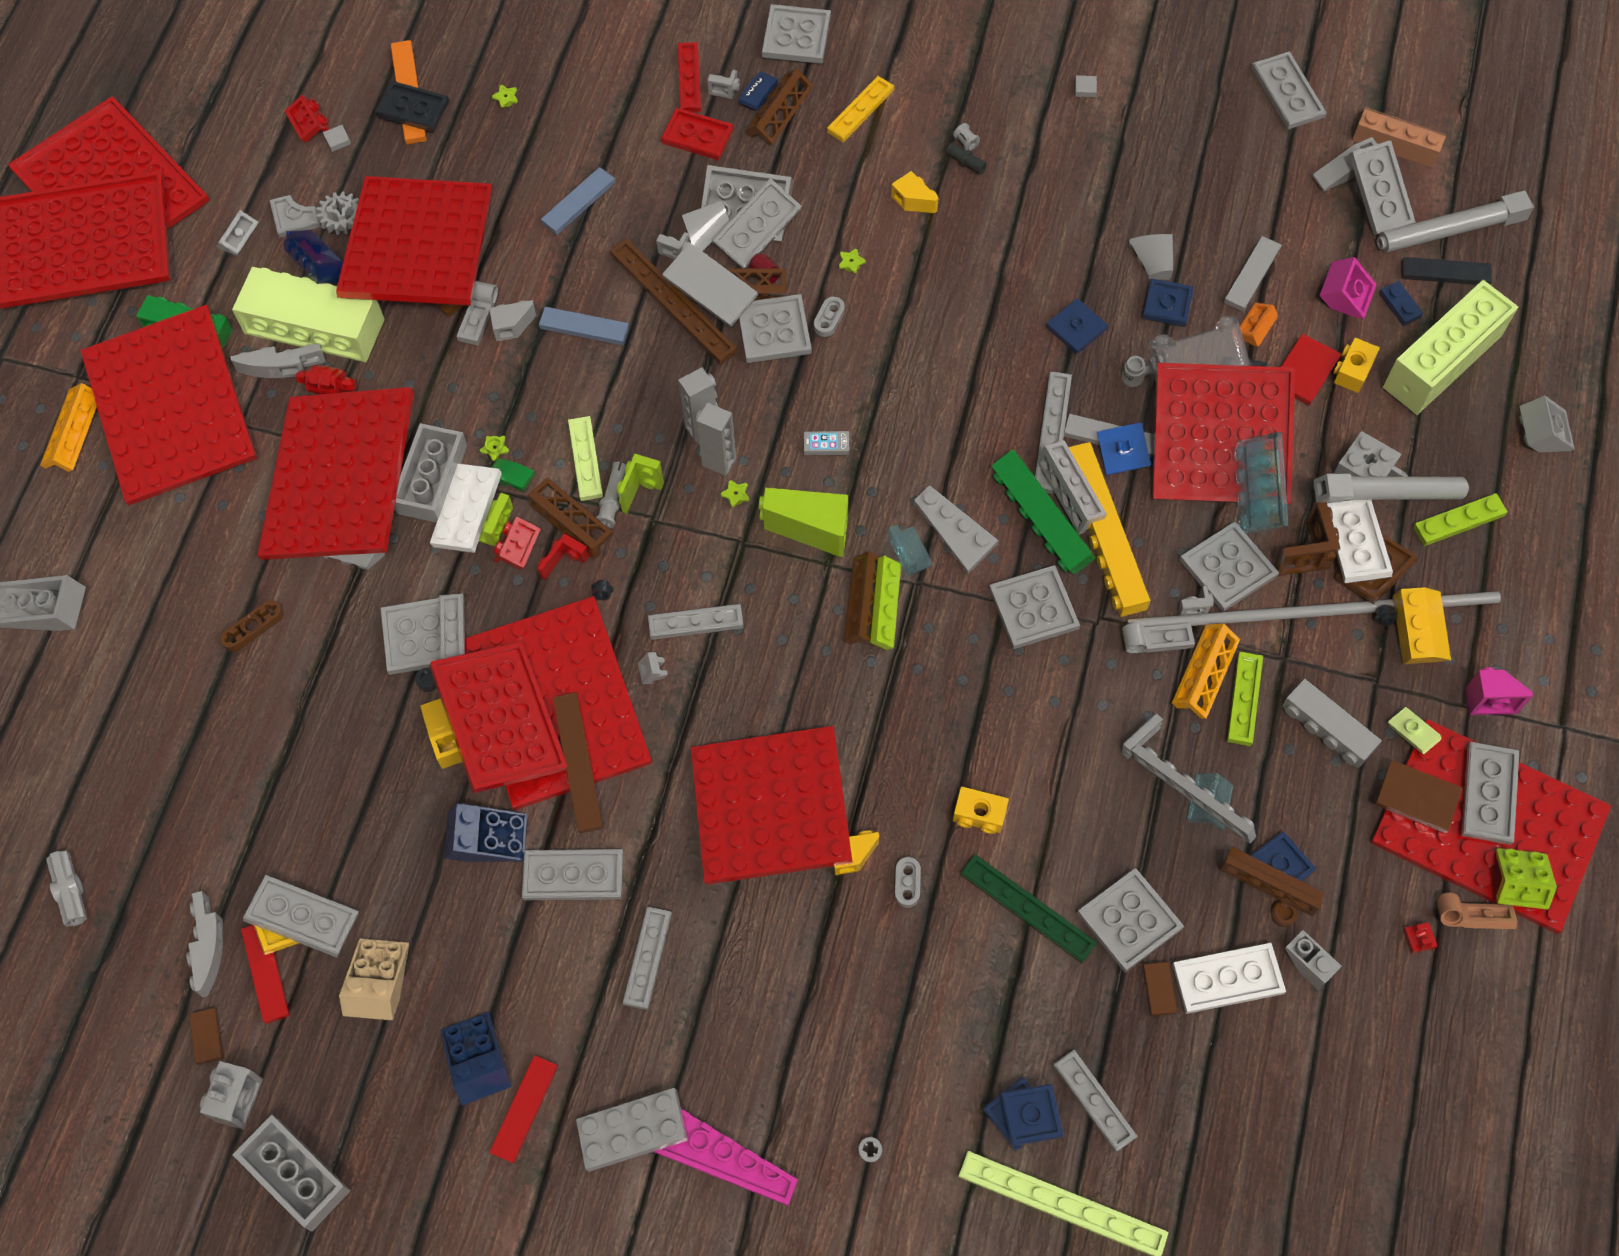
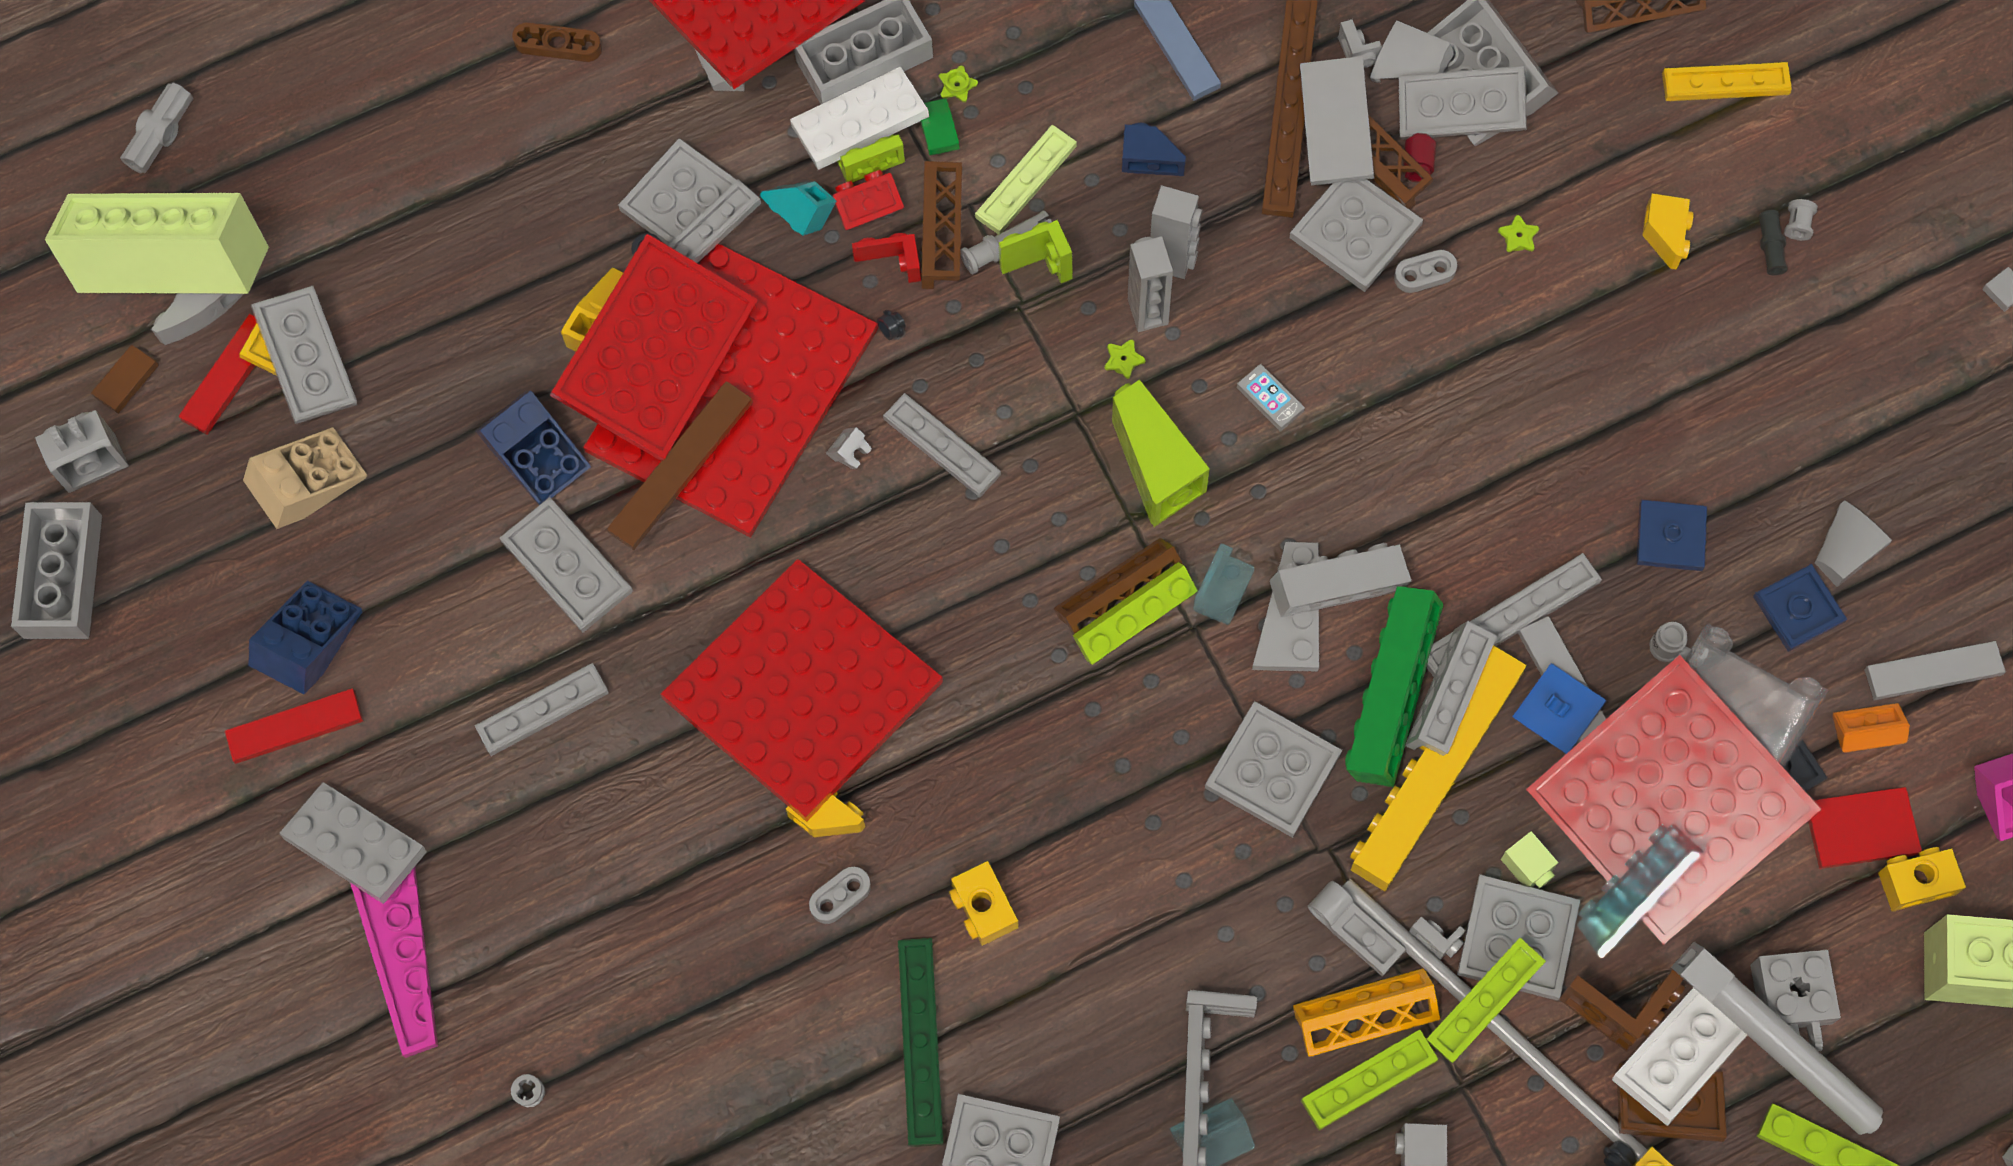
camera: 50 degrees right, 5 degrees up
(149, 939) = (157, 243): none -> yellowish green brick
(486, 576) = (801, 205): none -> teal slope
(633, 385) = (1150, 152): none -> dark blue slope
(962, 490) = (1339, 580): none -> light grey brick
(1193, 527) = (1530, 861): none -> yellowish green brick
(1253, 606) = (1486, 1000): none -> lime plate

